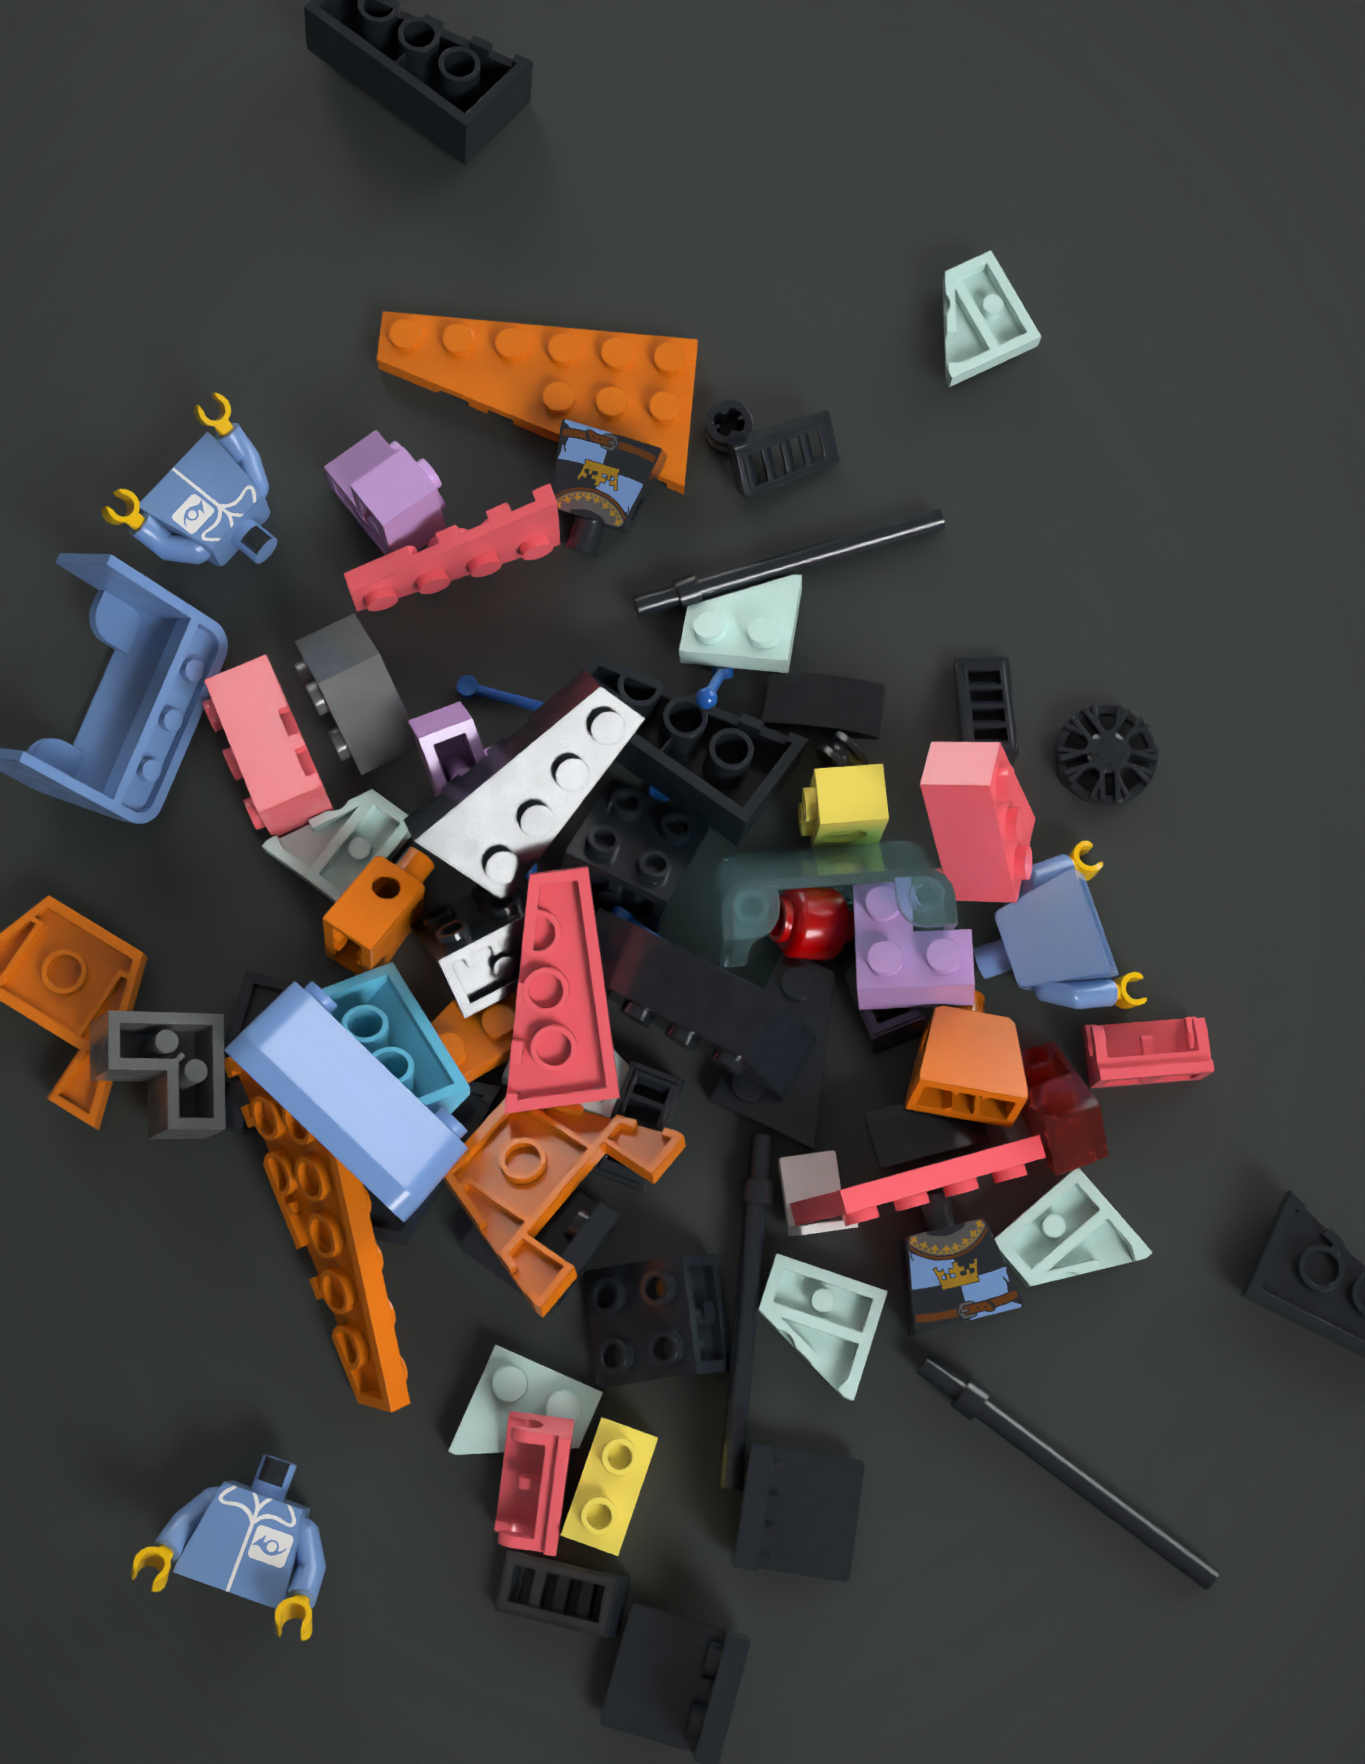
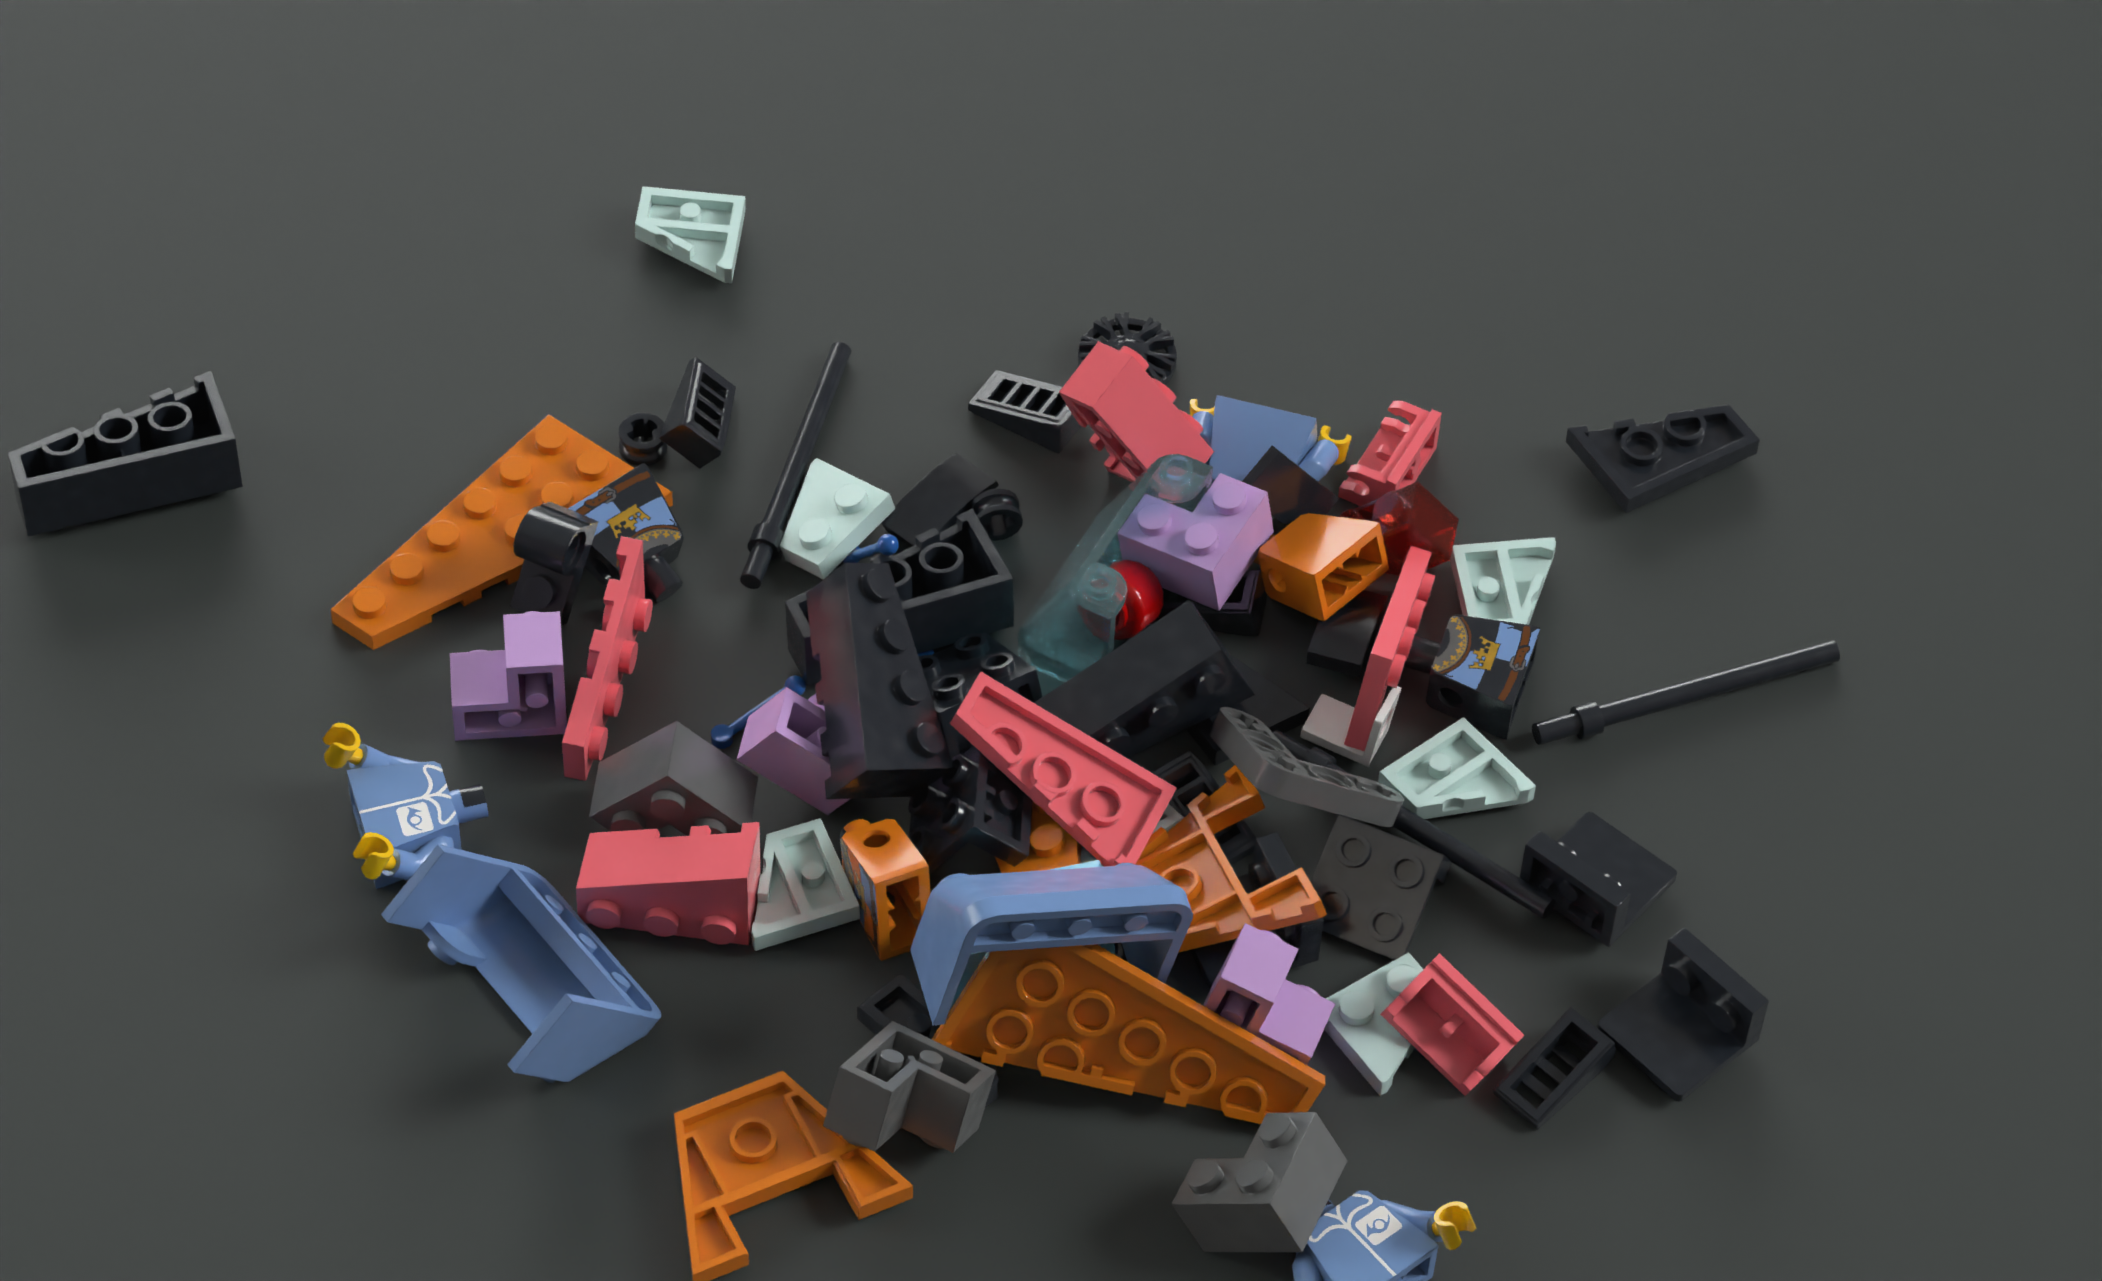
camera: 55 degrees left, 25 degrees down
(239, 1438) = (1270, 1194): none -> dark grey brick
(437, 1312) = (1260, 1000): none -> lavender brick
(526, 441) = (554, 555): none -> black plate
(609, 1486) = (1497, 970): light yellow brick -> none
(690, 1197) = (1280, 774): none -> dark grey beam
(844, 806) = (1047, 518): light yellow brick -> none
(1018, 991) = (1289, 487): none -> black slope

